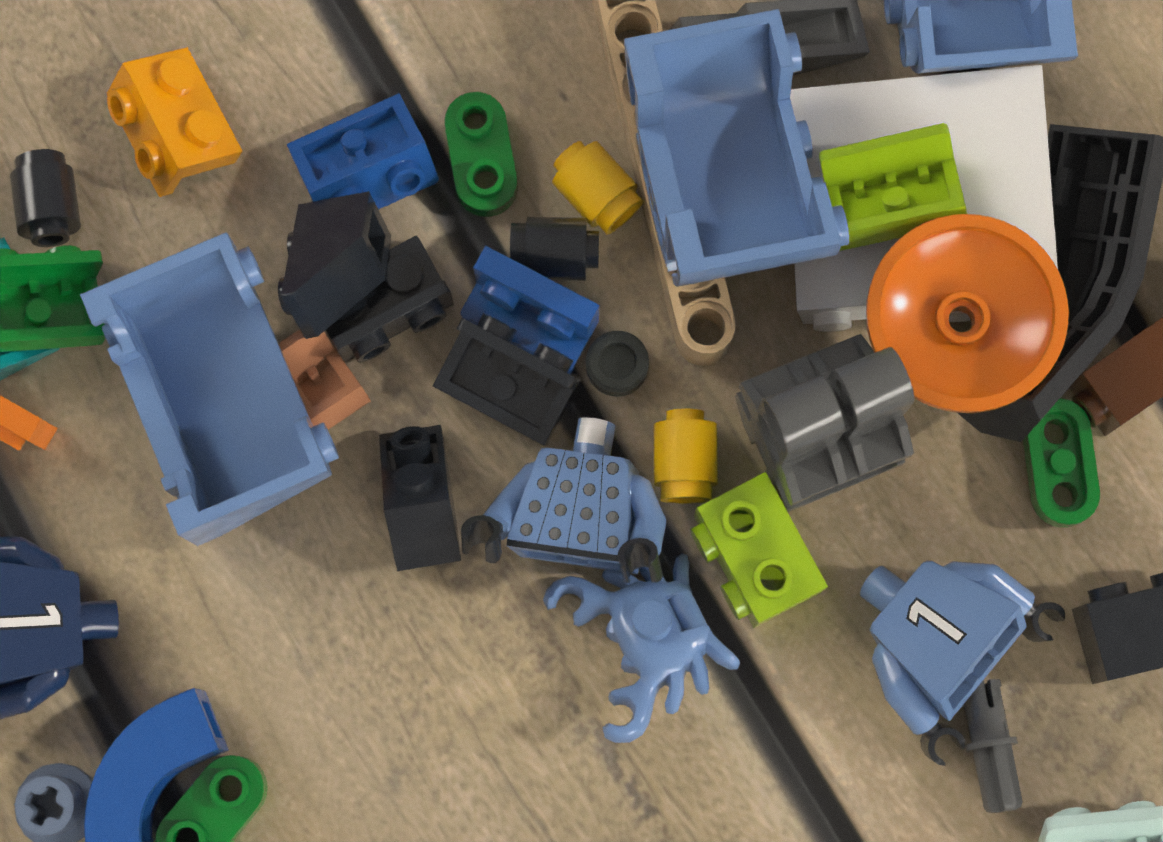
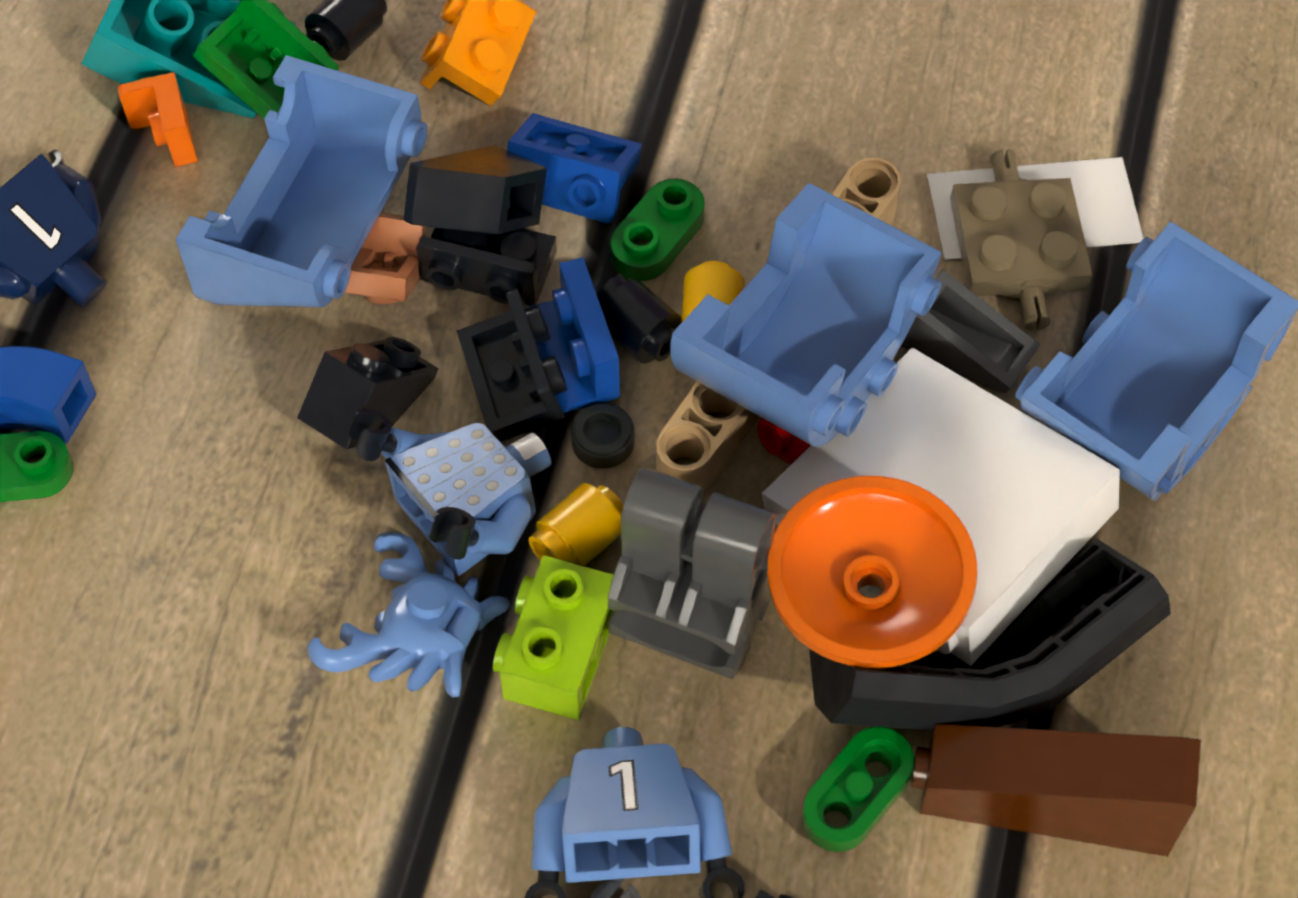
camera: 45 degrees right, 20 degrees down
(893, 183) = (915, 443): lime bracket -> none

